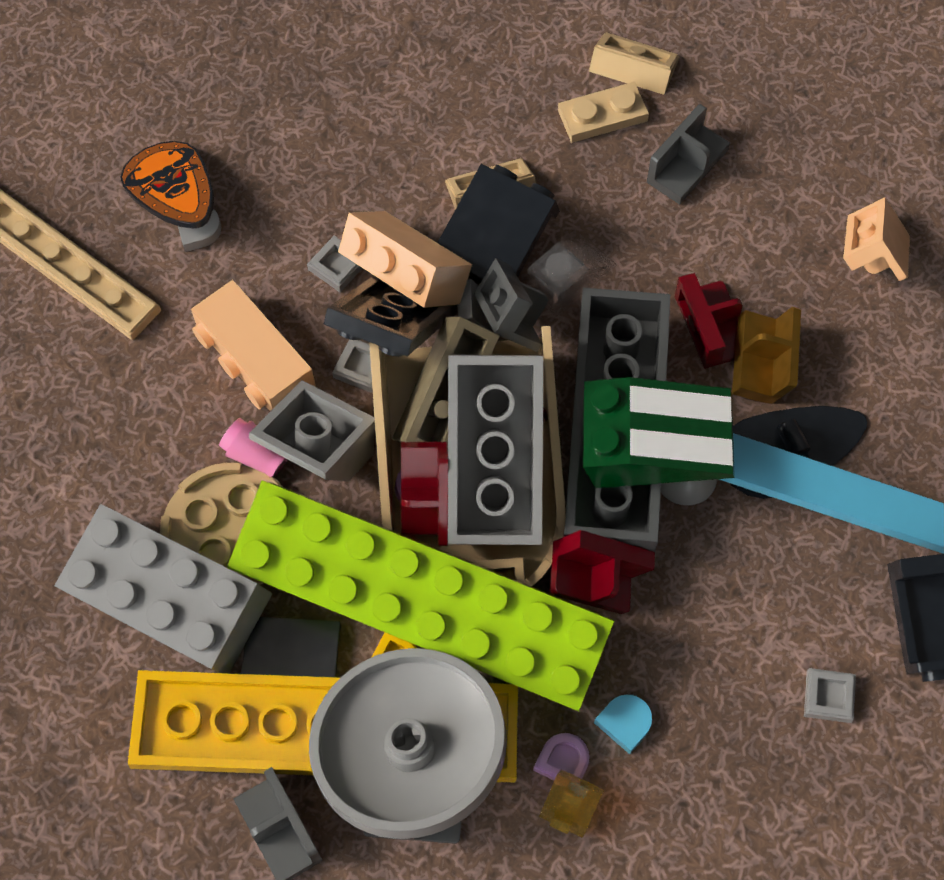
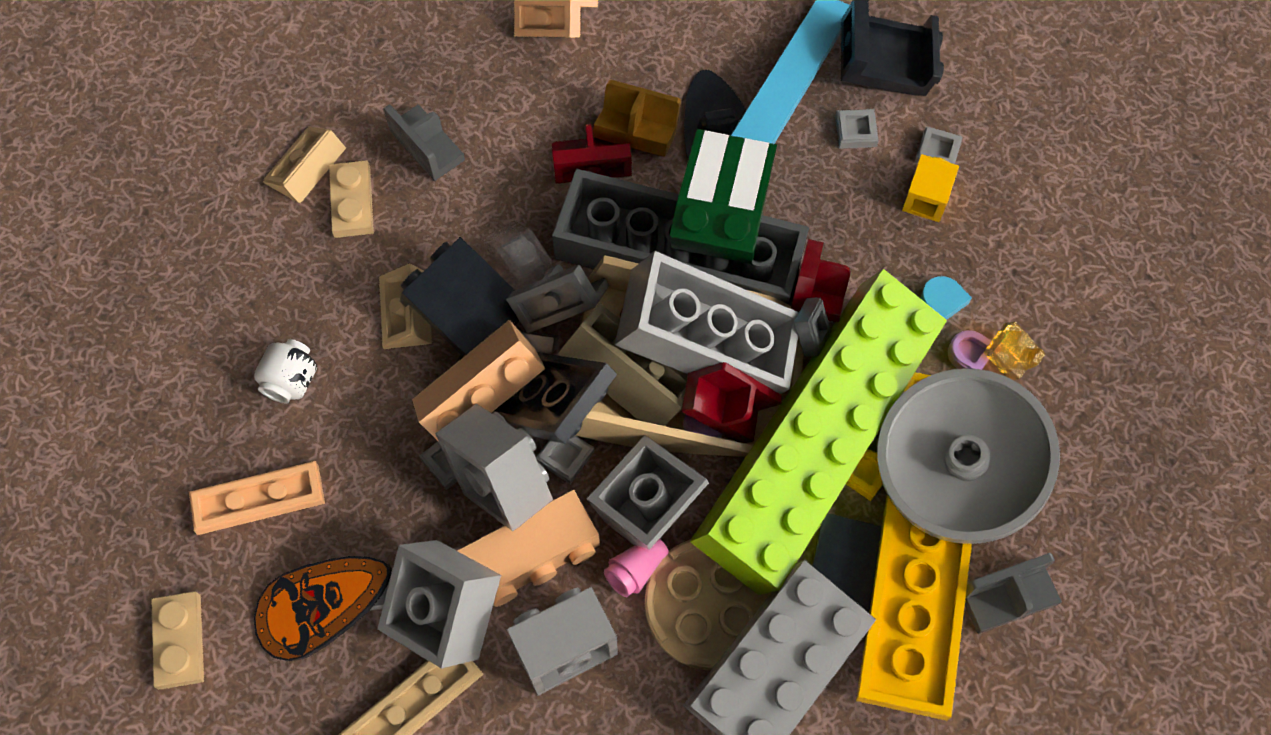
camera: 80 degrees left, 0 degrees up
(129, 90) = (177, 640): none -> tan plate
(158, 387) = (563, 639): none -> light grey brick
(175, 272) = (438, 603): none -> light grey brick
(271, 115) = (256, 497): none -> light nougat tile
(310, 283) = (495, 466): none -> light grey brick
(396, 101) = (285, 371): none -> white head
(532, 561) = (812, 326): none -> dark grey tile
(767, 685) = (930, 187): none -> yellow brick
(832, 597) = (856, 128): none -> light grey tile

